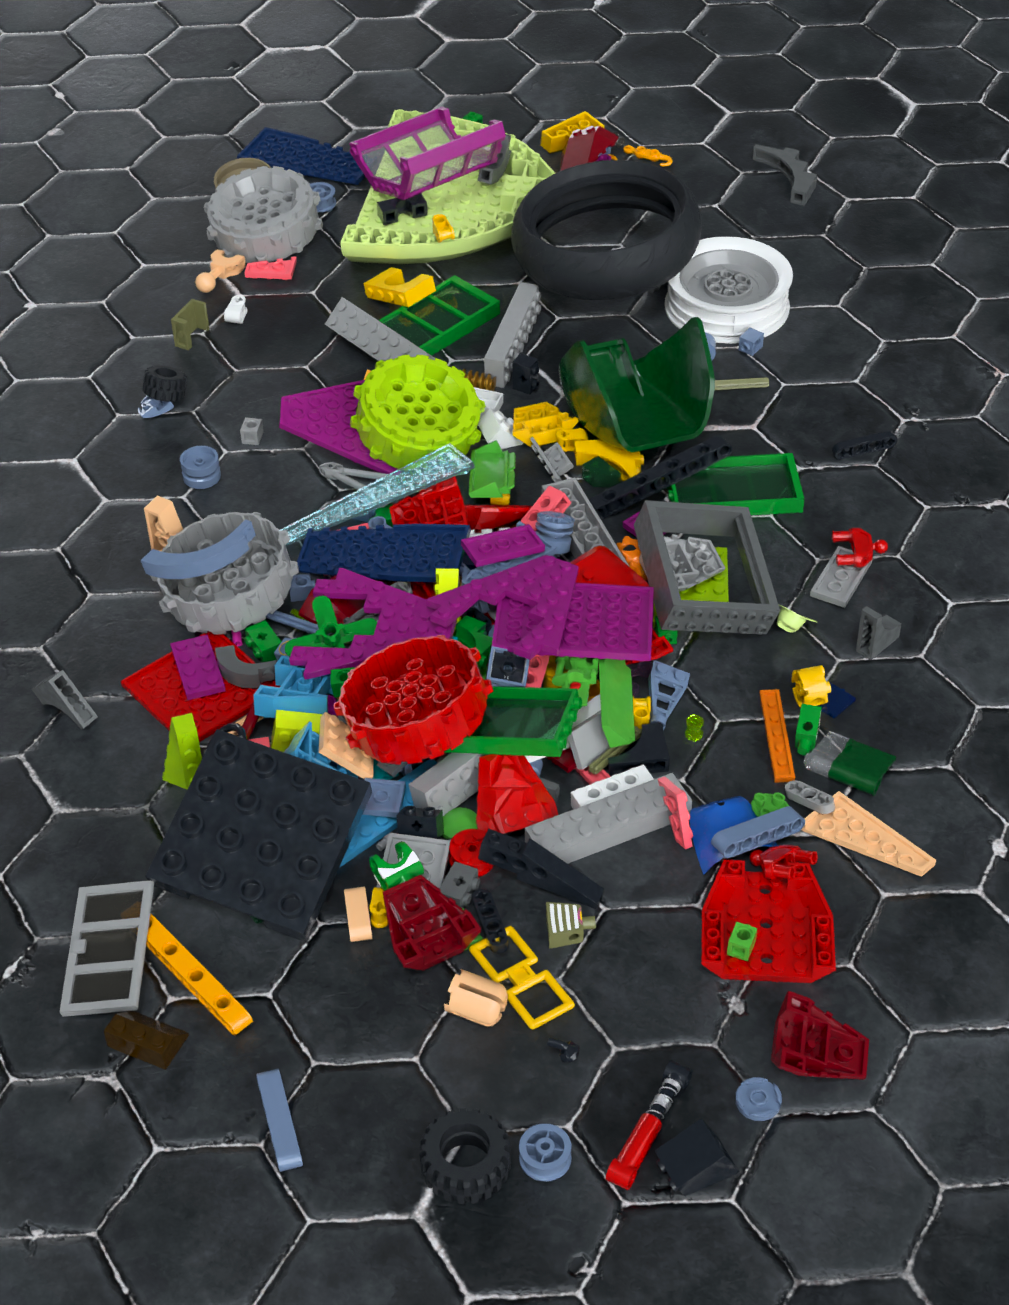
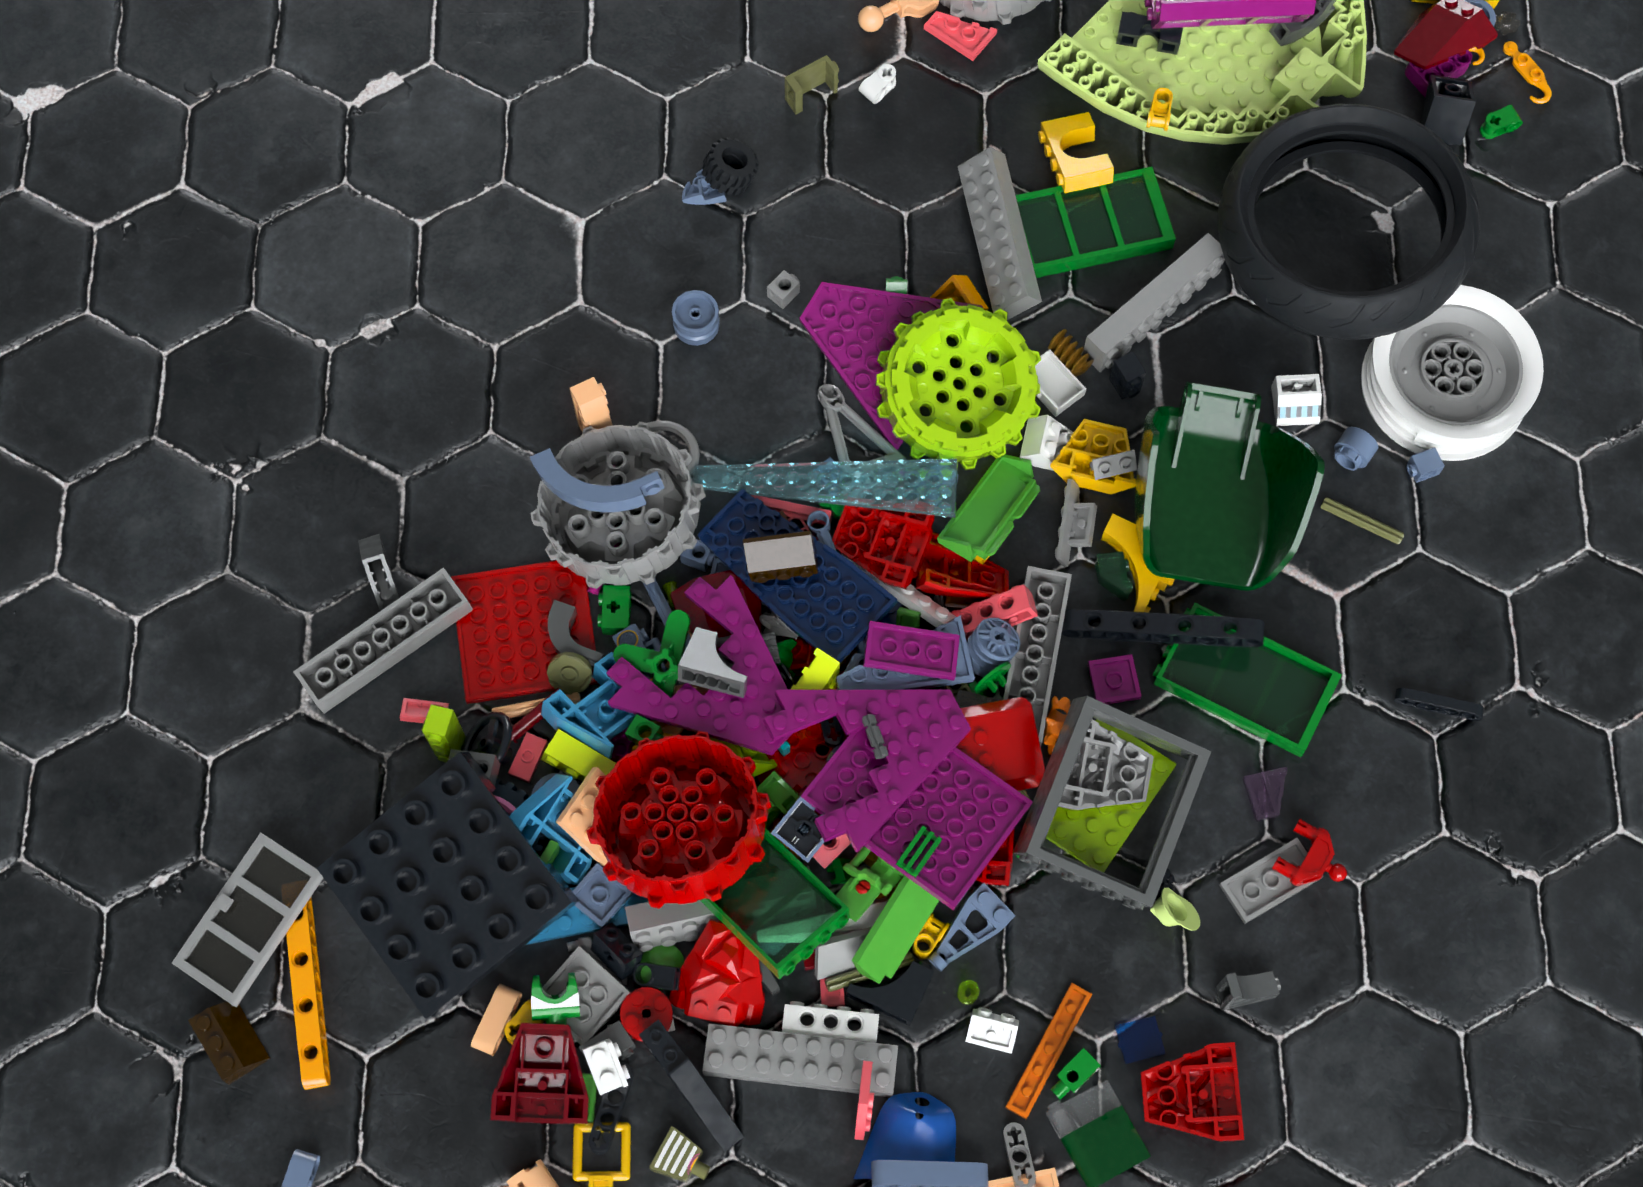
camera: 30 degrees right, 25 degrees up
(95, 733) = (383, 640): none -> light grey brick
(152, 765) = (416, 710): none -> coral plate
(197, 667) = (530, 604): magenta plate -> none
(253, 678) = (569, 672): none -> olive tile
(363, 613) = (705, 669): none -> arch
(369, 536) = (781, 556): none -> slope
(467, 819) = (662, 976): none -> black piece
(468, 888) = (605, 1066): none -> white bracket
(473, 634) = (812, 745): green arch -> none
(517, 591) = (874, 736): none -> dark grey axle
(555, 413) = (1114, 464): none -> light grey hinge
(569, 545) = (992, 677): none -> green piece
(570, 437) = (1118, 503): yellow piece -> none
(601, 628) = (929, 836): none -> green tile
(642, 339) = (1297, 399): none -> white slope
(729, 740) = (992, 1030): none -> white bracket
(767, 803) = (974, 1141): bright green dish -> none
(797, 535) = (1266, 792): none -> clear purple wing
(810, 686) = (1119, 1019): yellow brick -> none
(896, 700) = (1196, 1093): none -> red wedge

